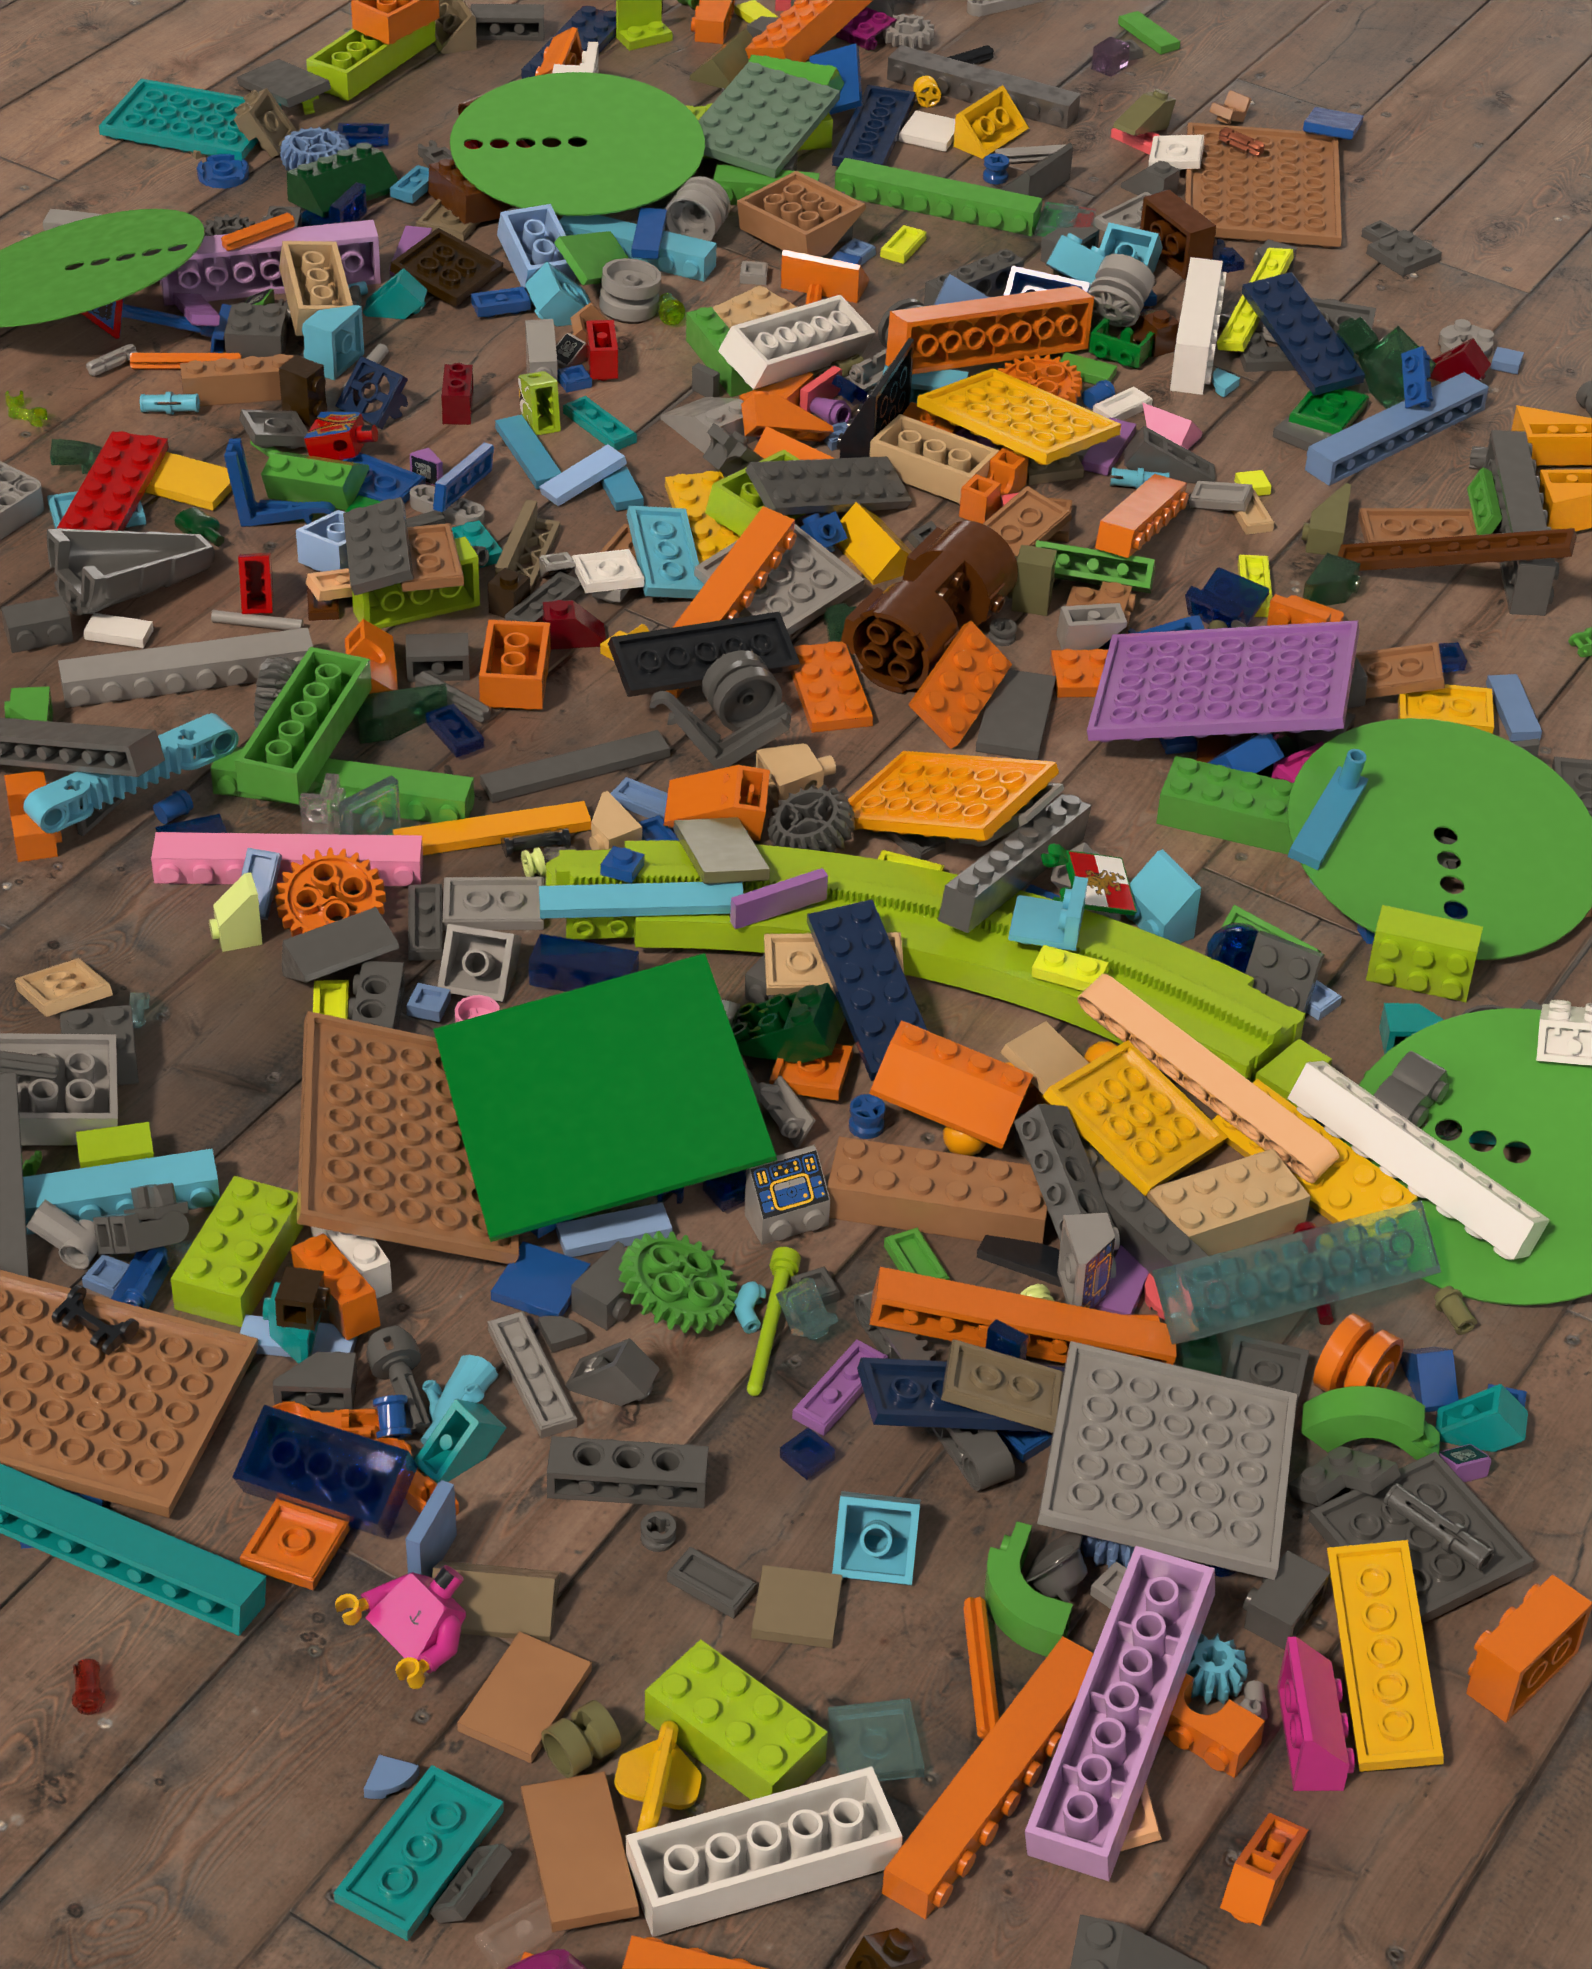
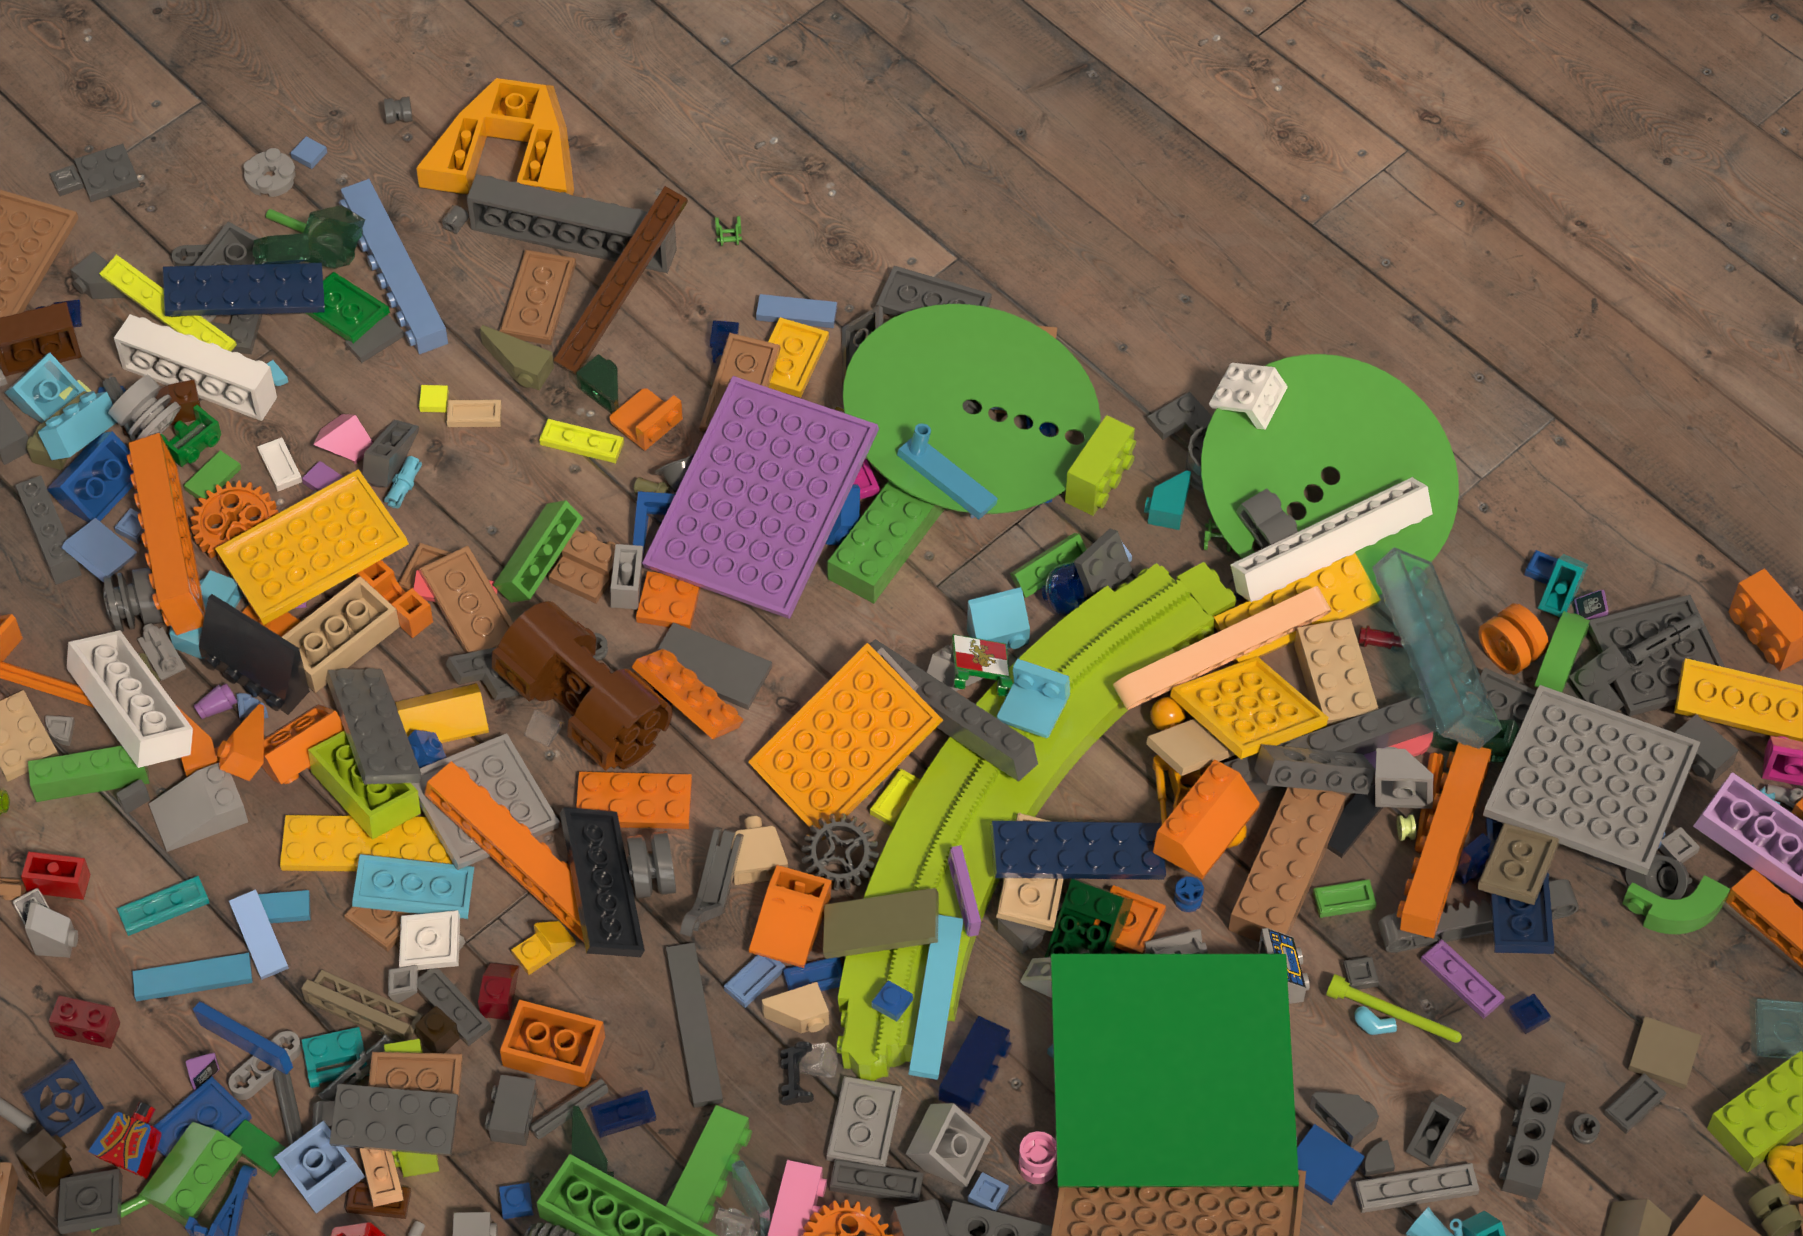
camera: 75 degrees left, 15 degrees up
(378, 646) = (500, 1162): orange arch -> none
(491, 828) = (766, 1107): light orange tile -> none
(533, 863) = (827, 1080): yellowish green bush -> none
(540, 395) = (126, 948): lime torso -> none
(574, 378) = (78, 911): blue tile -> none
(678, 1282) = (1334, 1062): bright green gear -> none
(729, 451) = (276, 797): dark grey brick -> none
(805, 1310) = (1397, 982): clear light blue bracket -> none
(820, 387) = (181, 699): coral tile -> none
(835, 619) = (555, 768): clear green bracket -> none
(849, 390) = (188, 677): clear blue plate -> none
(876, 1537) = (1615, 984): medium azure slope -> none
(981, 1665) = (1732, 949): orange axle -> none
(1034, 581) = (554, 588): olive brick -> none
(1067, 968) = (1087, 705): neon yellow plate -> none
(1098, 393) = (260, 477): blue piece -> none
(1141, 515) = (491, 492): orange brick -> none
(1221, 496) = (453, 427): light grey tile -> none
(1226, 598) = (612, 465): clear blue bracket -> none
(1415, 374) = (367, 225): blue hinge -> none
(1431, 1376) = (1506, 593): blue slope -> none
(1450, 1303) = (1454, 567): olive pin -> none
(1462, 358) = (314, 191): dark red slope -> none
(1484, 502) = (535, 239): bright green tile -> none

